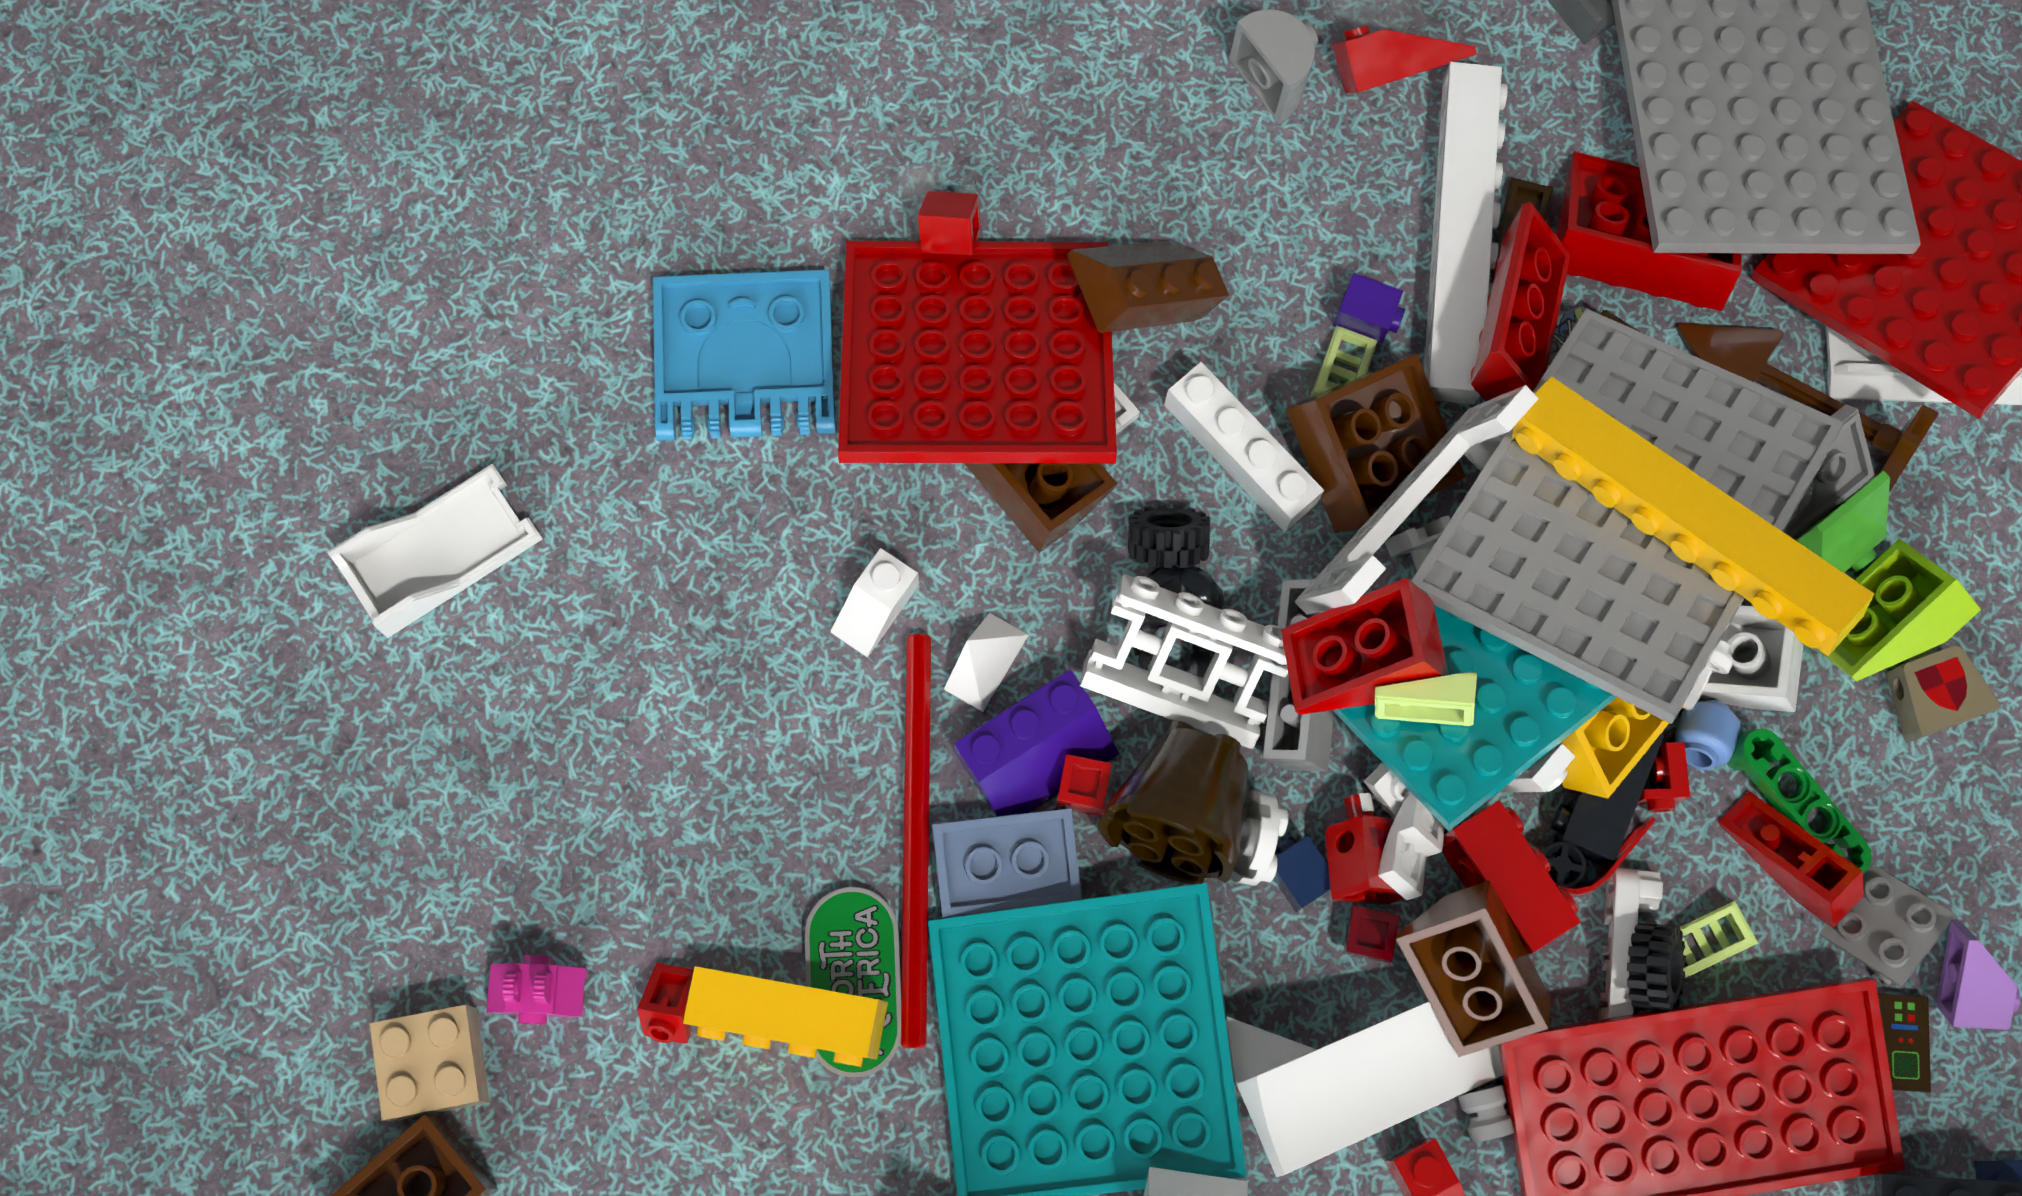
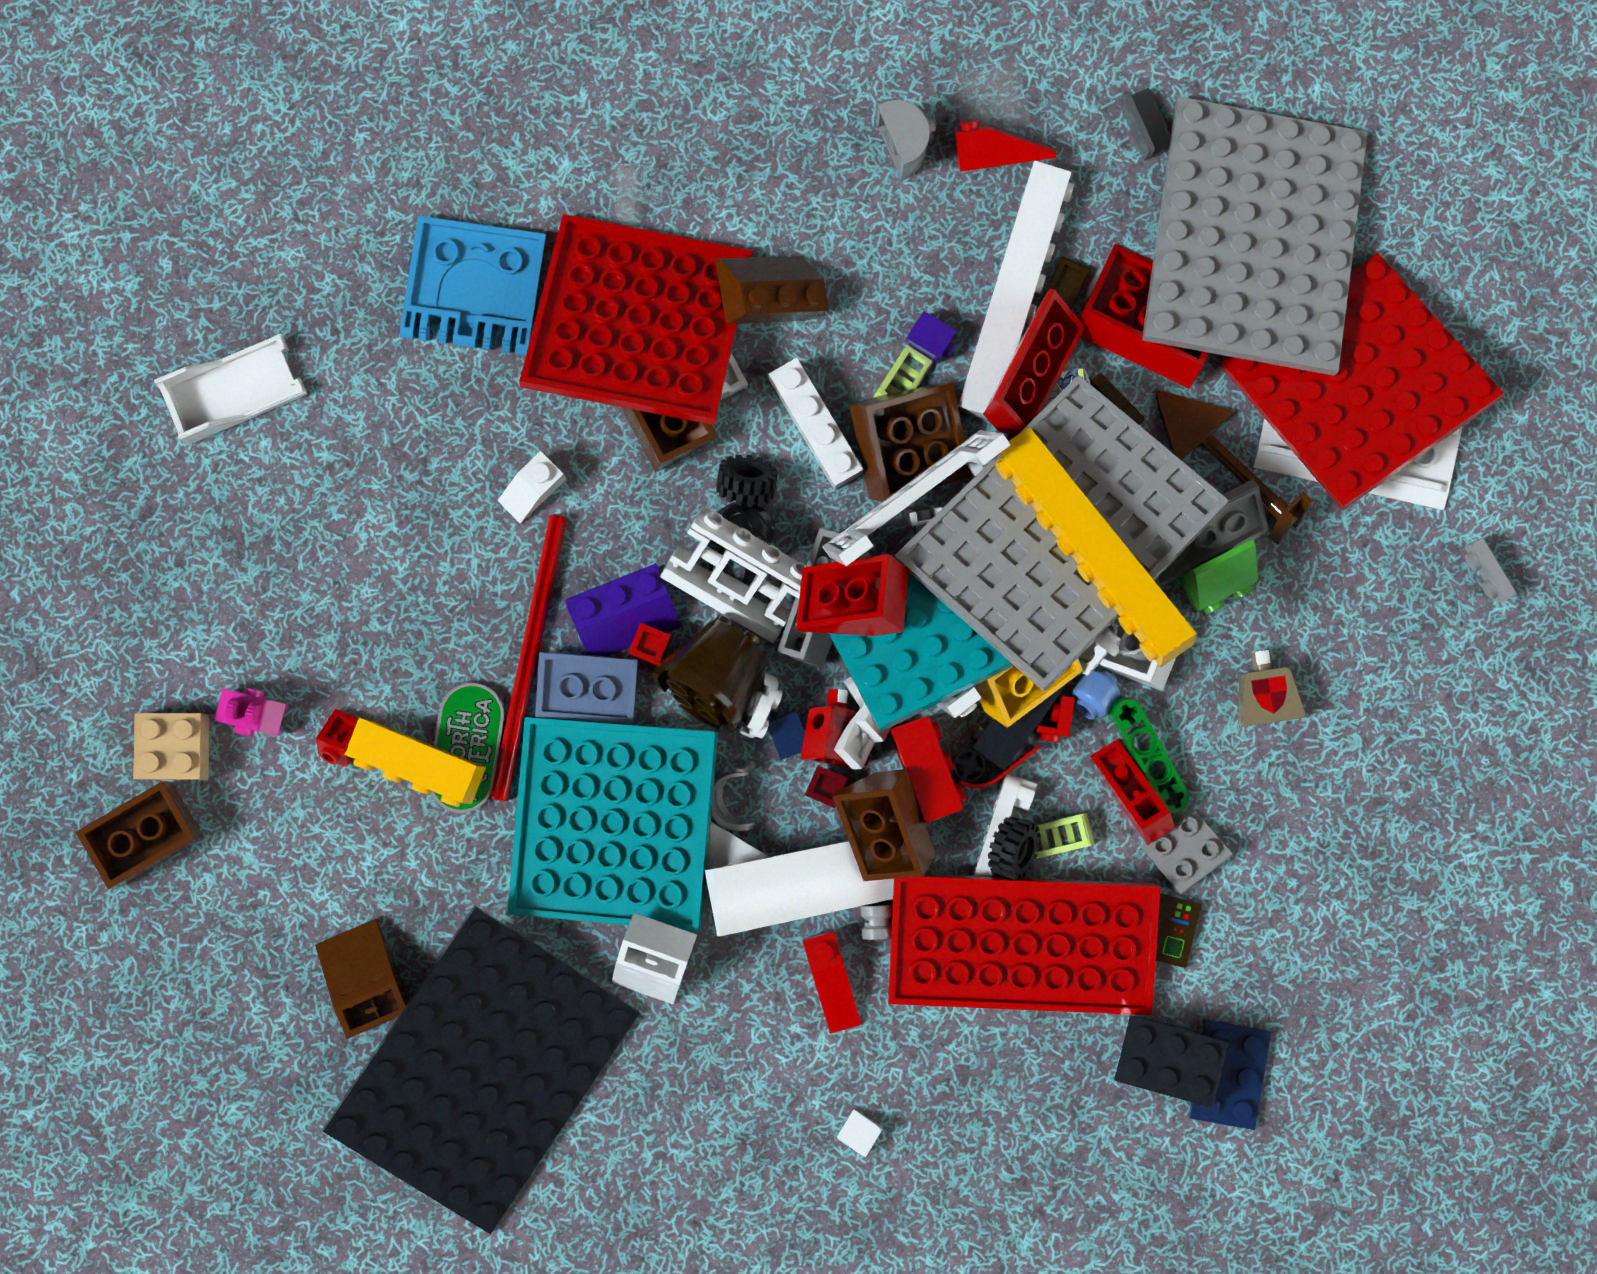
camera: 15 degrees right, 10 degrees up
(949, 223) = (638, 216): red panel -> none
(985, 661) = (602, 542): white slope -> none
(1234, 1005) = (719, 812): none -> light grey helmet
(1429, 700) = (890, 642): yellowish green slope -> none
(1911, 612) = (1245, 636): lime slope -> none
(1973, 985) = (1234, 903): medium lavender slope -> none

